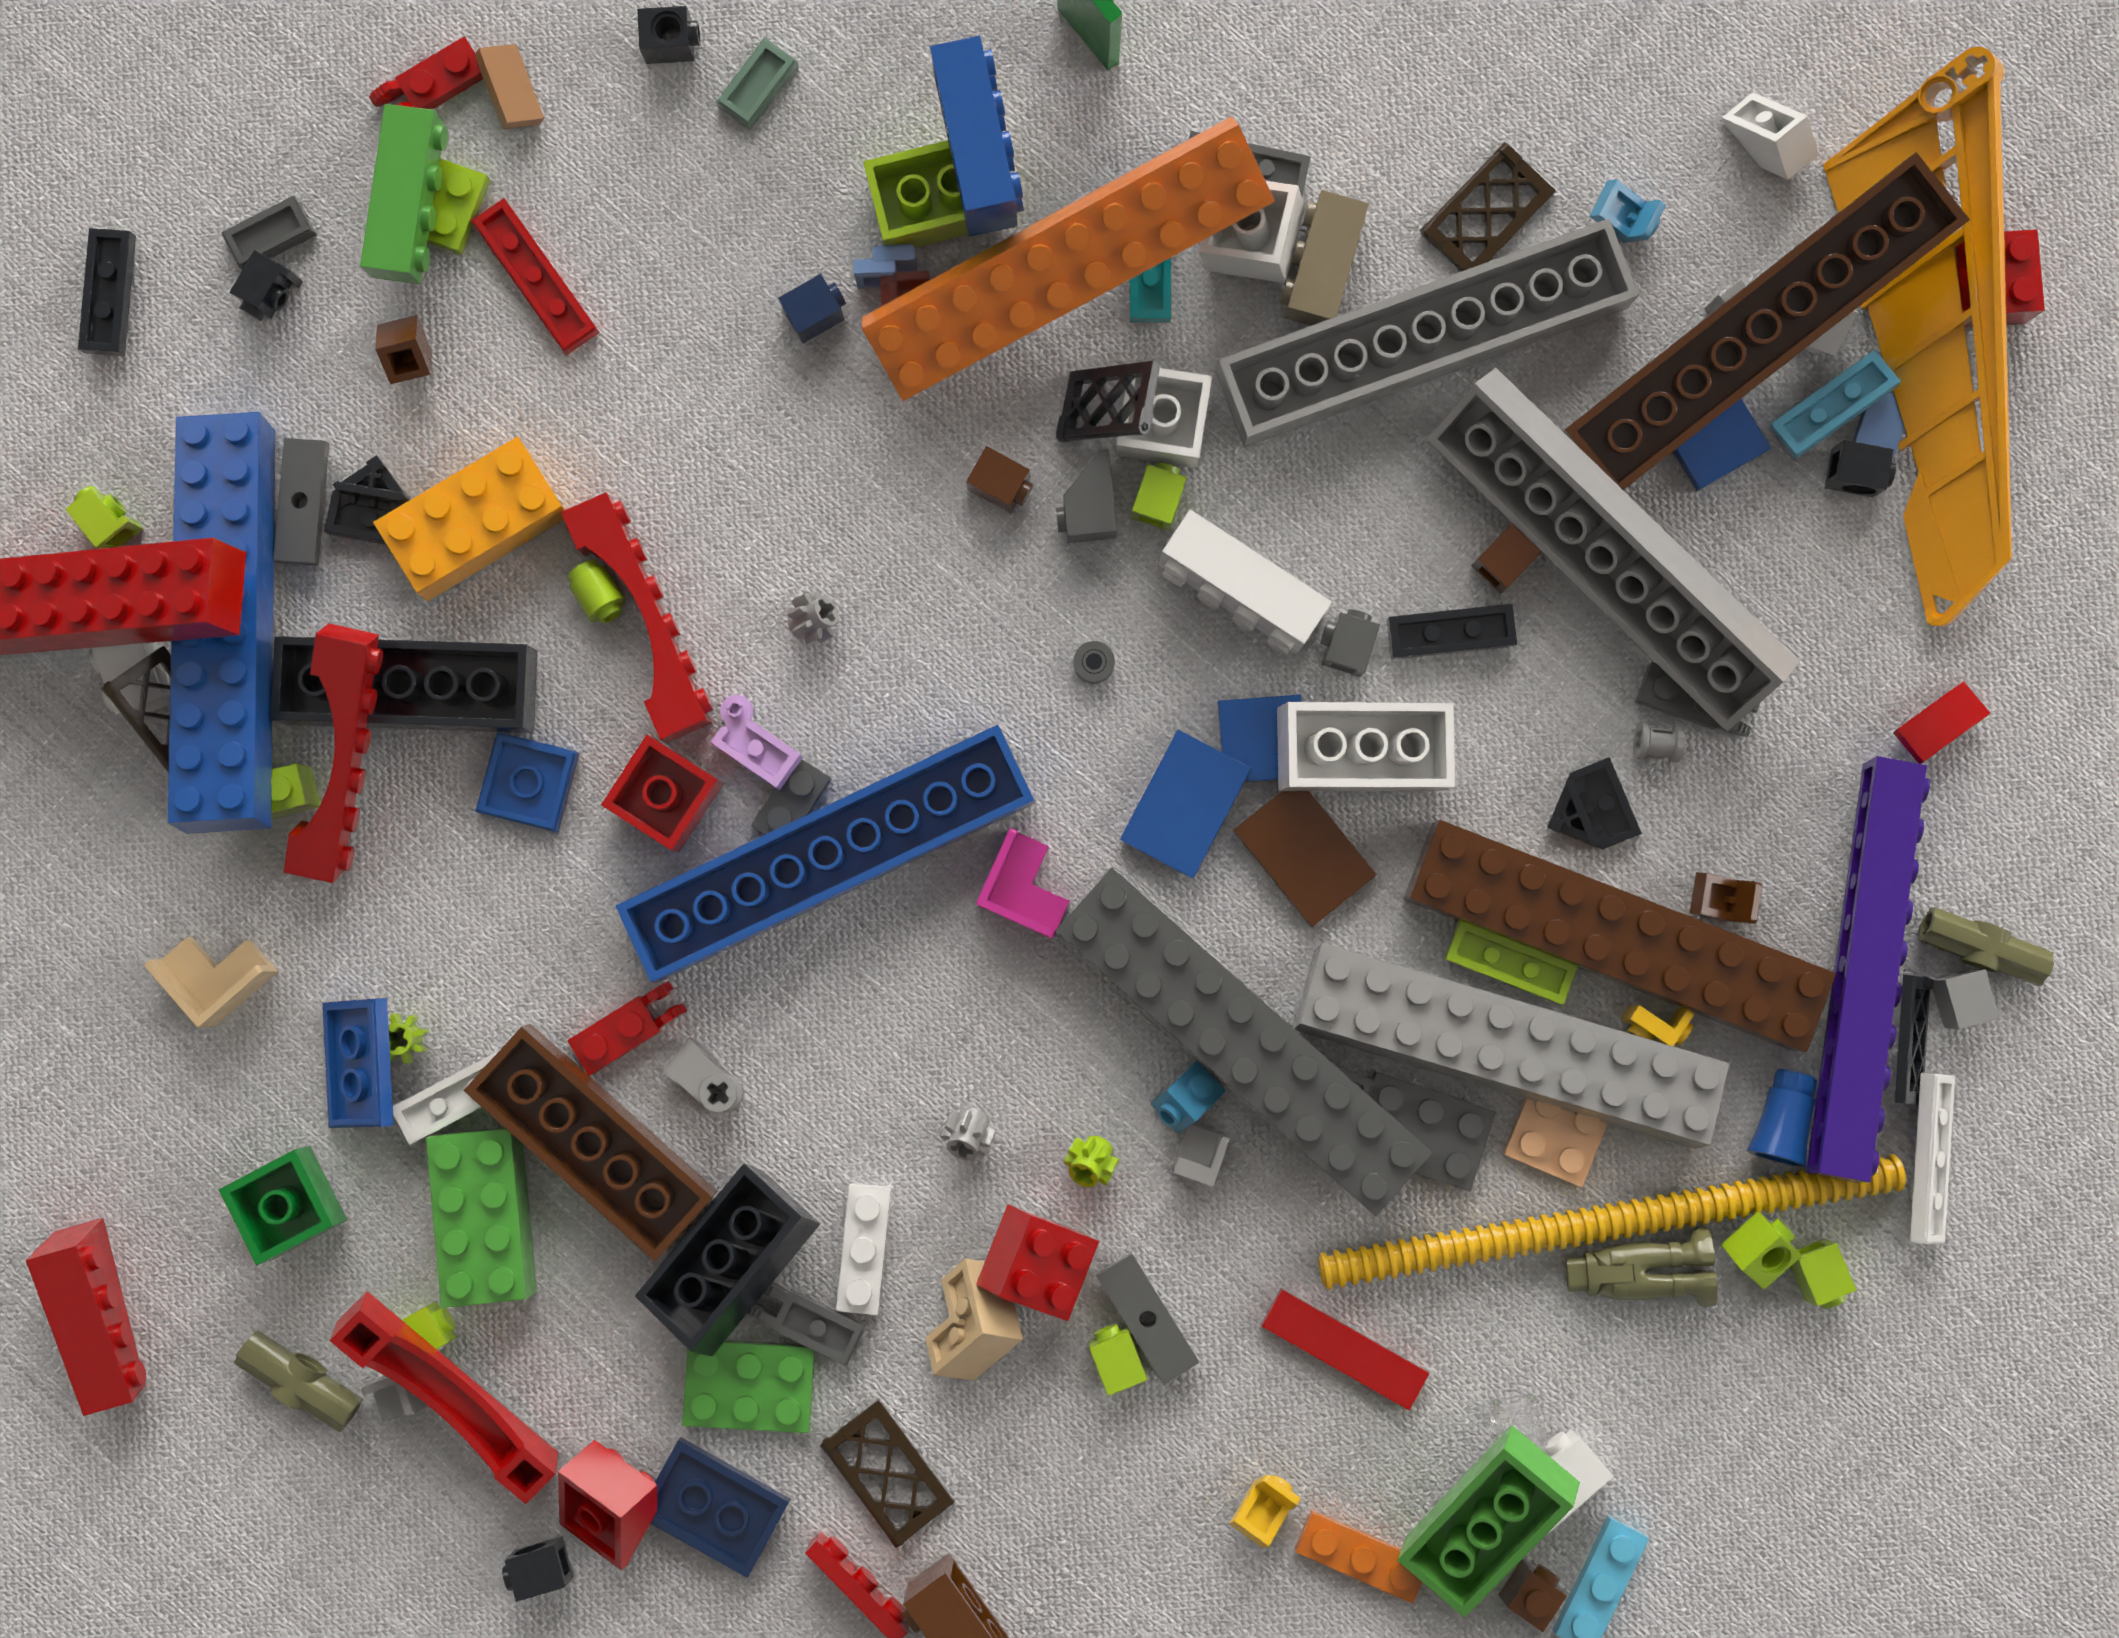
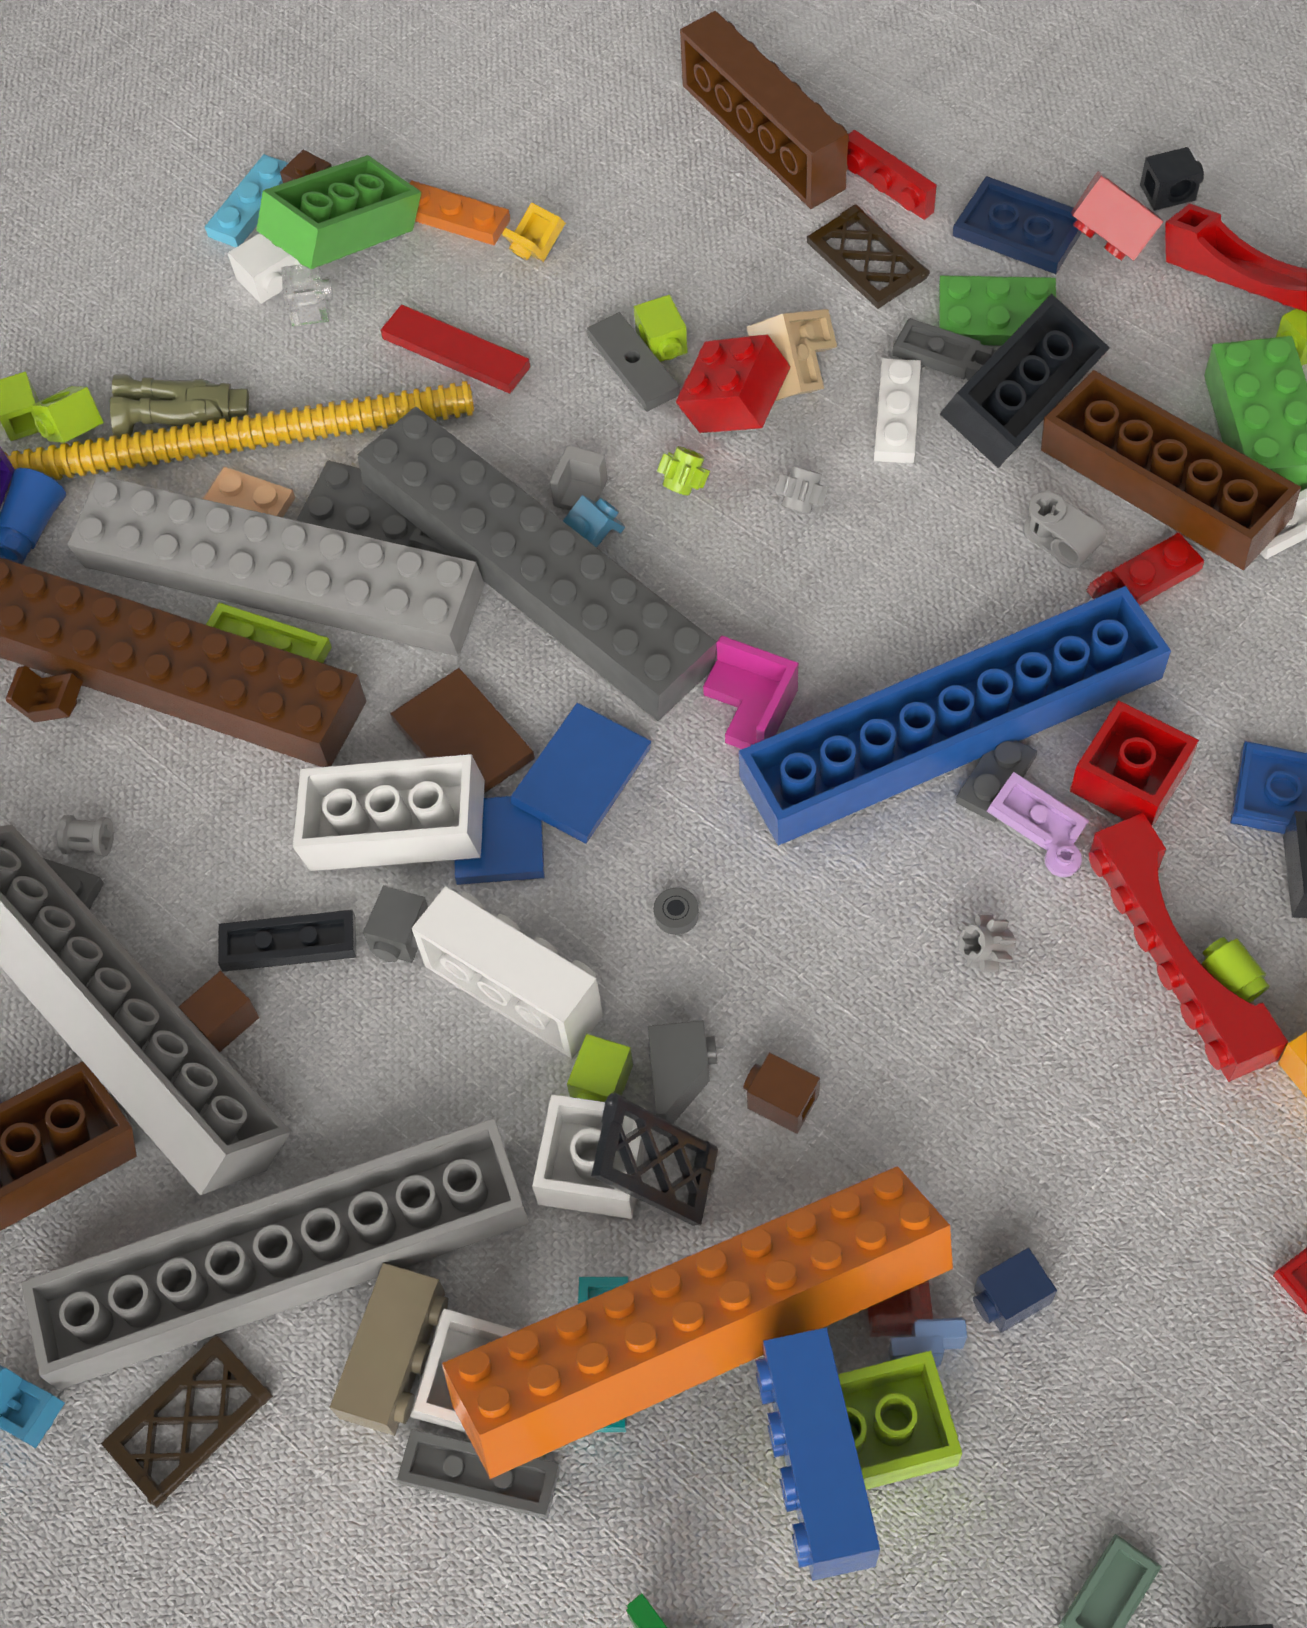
camera: 175 degrees left, 25 degrees down
(1595, 807) = (162, 780): black slope -> none
(1649, 1026) = (132, 585): yellow bracket -> none

